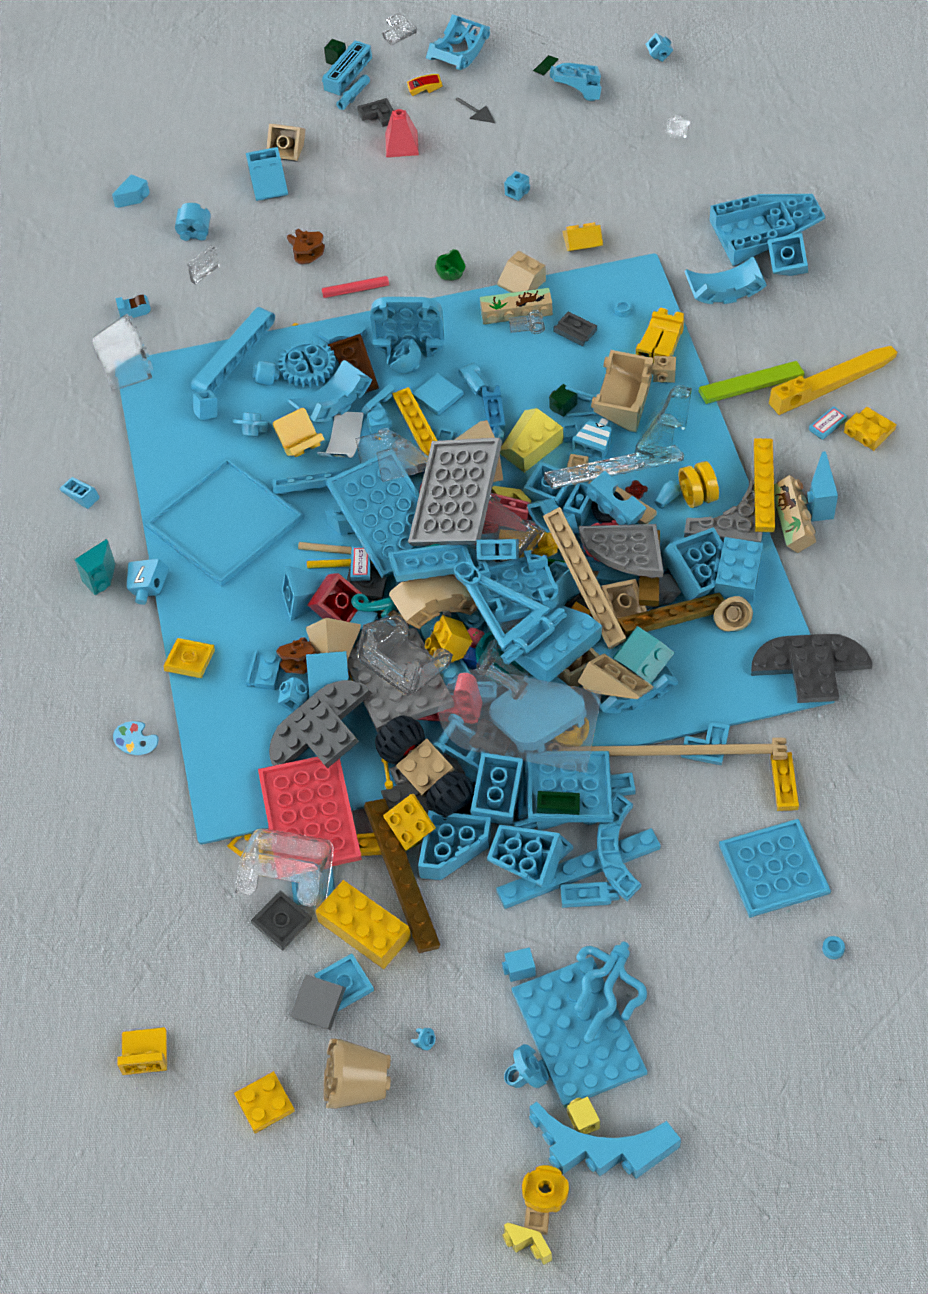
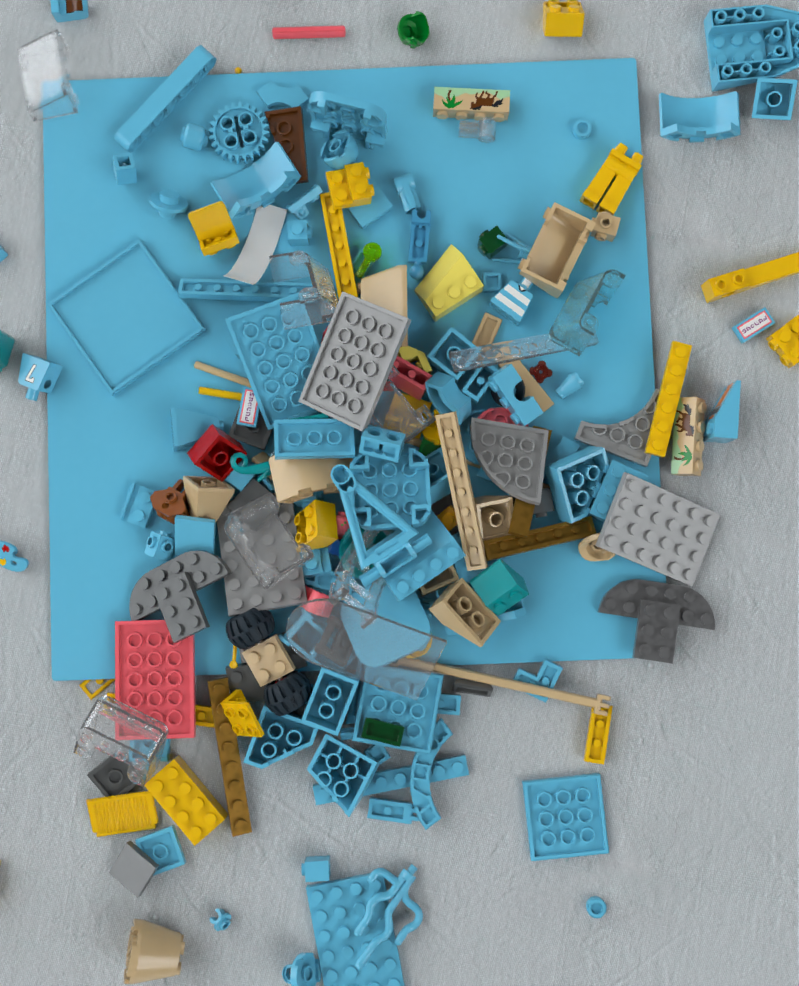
camera: 10 degrees right, 30 degrees up
(189, 658) = (68, 477): yellow plate -> none
(264, 1102) = (75, 946): yellow plate -> none
(295, 954) = (122, 813): none -> yellow window
(419, 380) = (350, 186): none -> yellow plate
(451, 427) = (371, 253): none -> clear neon green plate
(522, 273) = (486, 62): tan slope -> none
(575, 328) = (526, 147): dark grey plate -> none
(643, 765) = (472, 687): none -> dark grey tile
(698, 484) = (603, 387): yellow wheel -> none
(750, 382) = (690, 257): lime tile -> none
(787, 587) = (657, 529): none -> light grey plate

